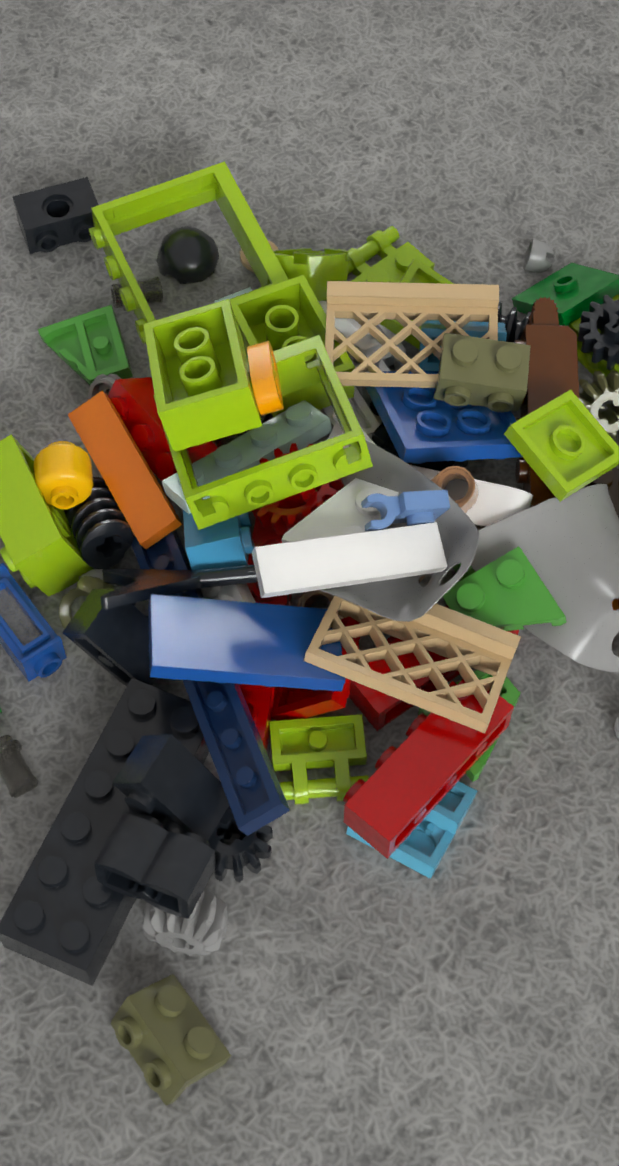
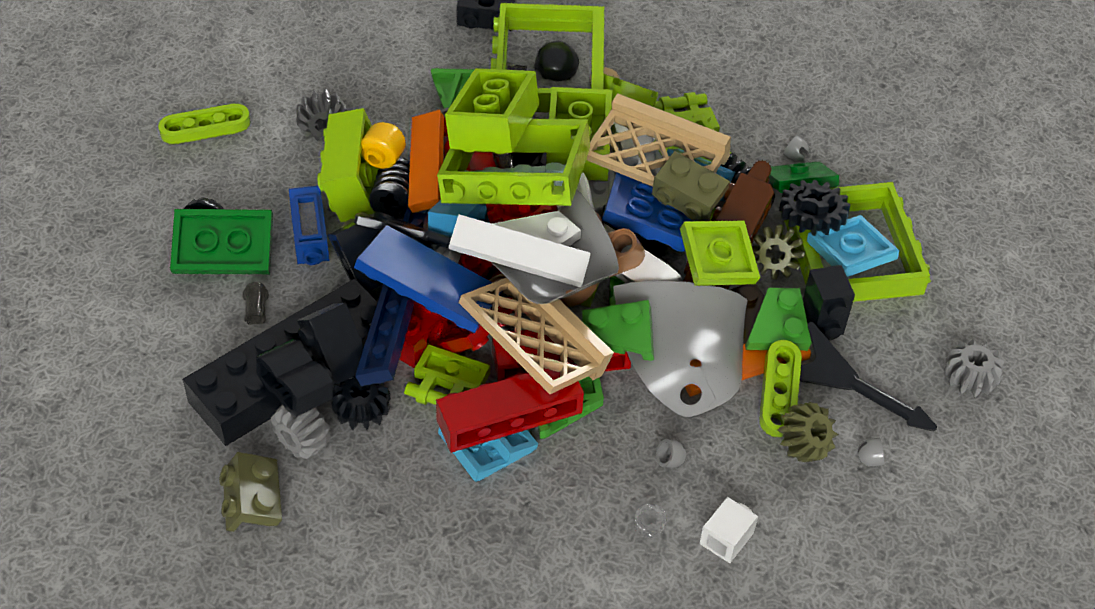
camera: 25 degrees right, 10 degrees down
(265, 378) = (532, 127): light orange beam -> none
(408, 508) = (575, 235): medium blue plate -> none

